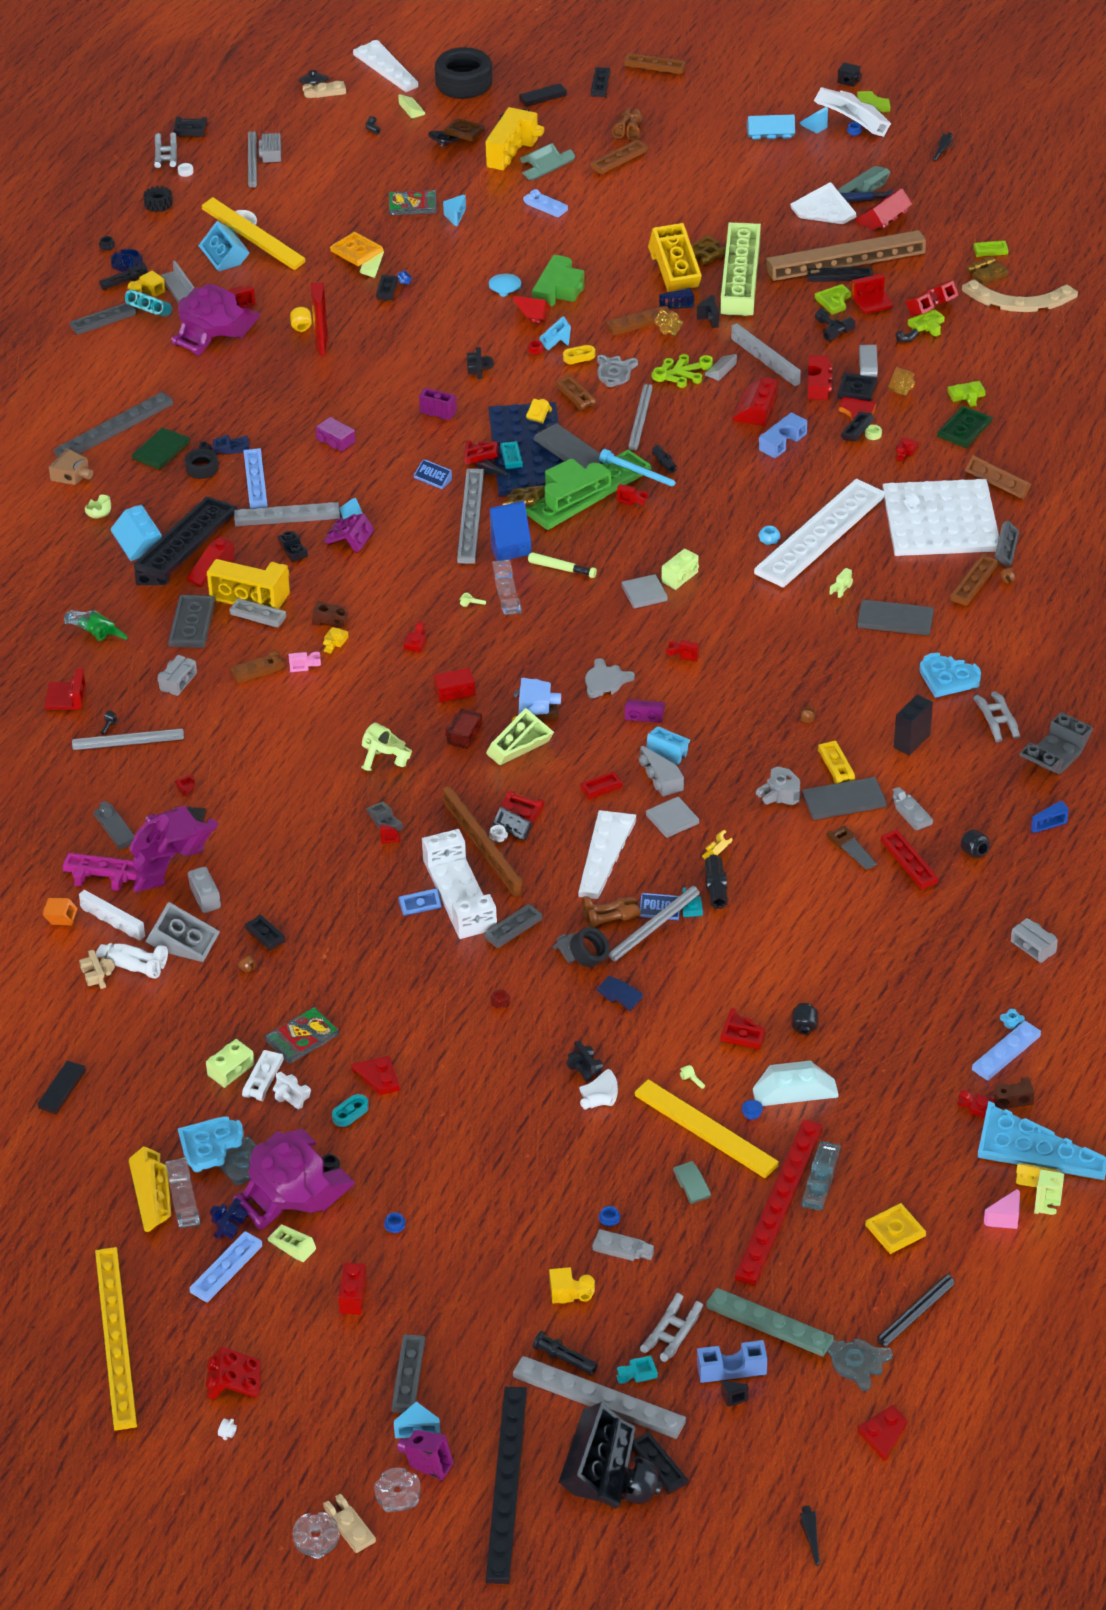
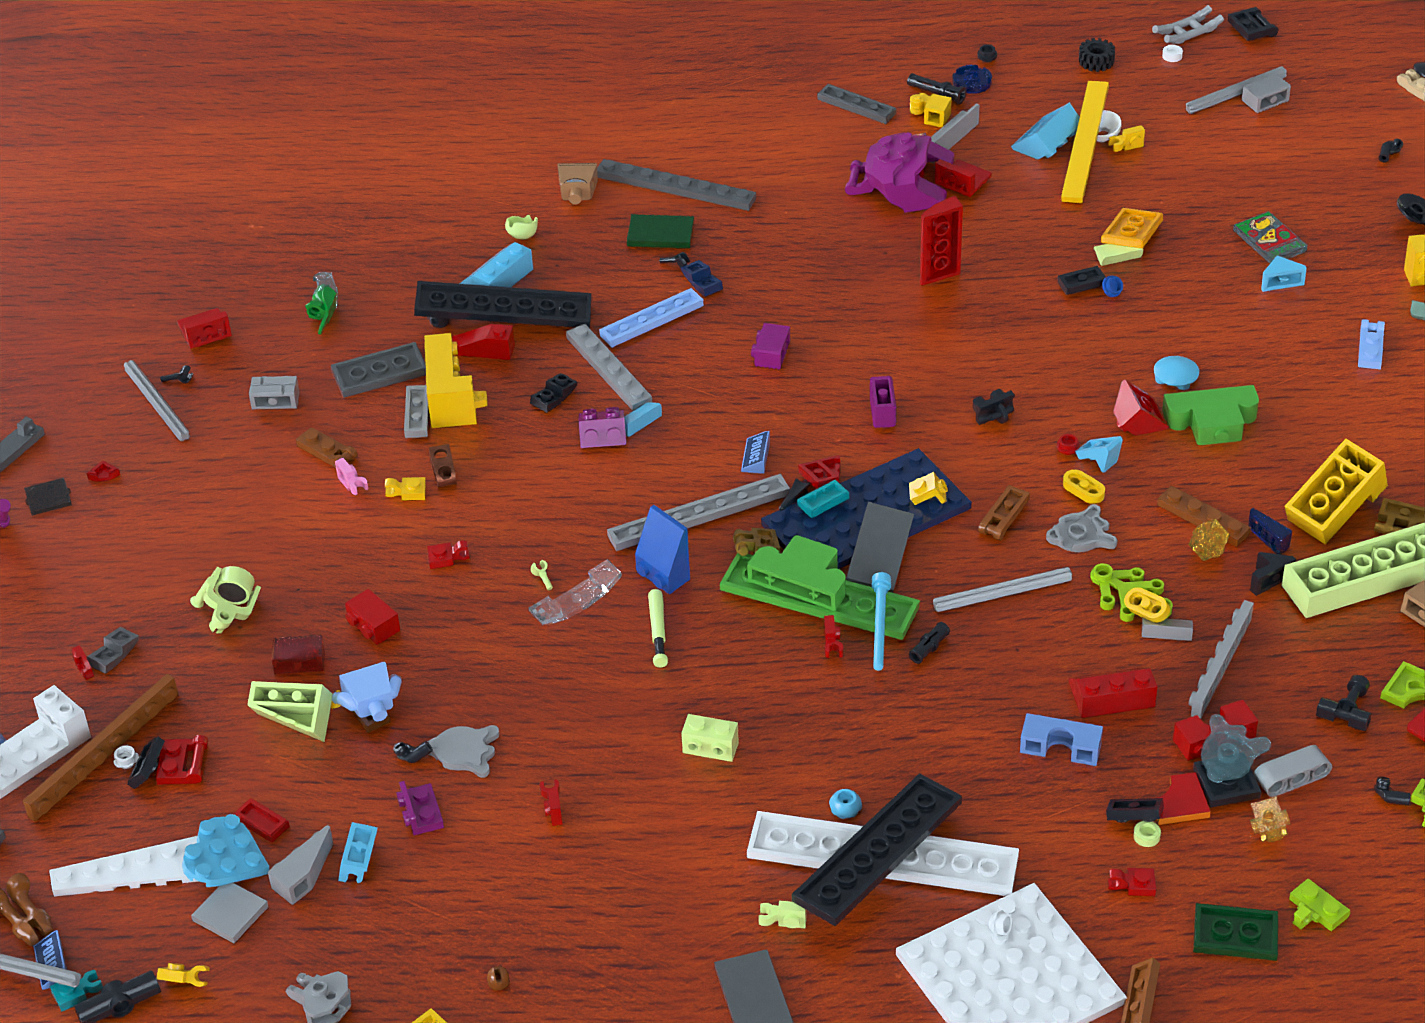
camera: 65 degrees right, 0 degrees up
(154, 303) = (897, 116): teal beam -> none
(203, 471) = (649, 278): black tyre -> none
(265, 217) = (1130, 139): none -> yellow plate
(300, 319) = (970, 237): yellow head -> none
(593, 702) = (412, 754): none -> black arm
(623, 802) = (223, 853): none -> medium azure plate
(644, 591) = (654, 722): light grey tile -> none
(704, 362) = (1149, 605): none -> yellow plate
(825, 526) = (876, 849): none -> black plate
(843, 374) = (1228, 752): none -> clear light blue tile

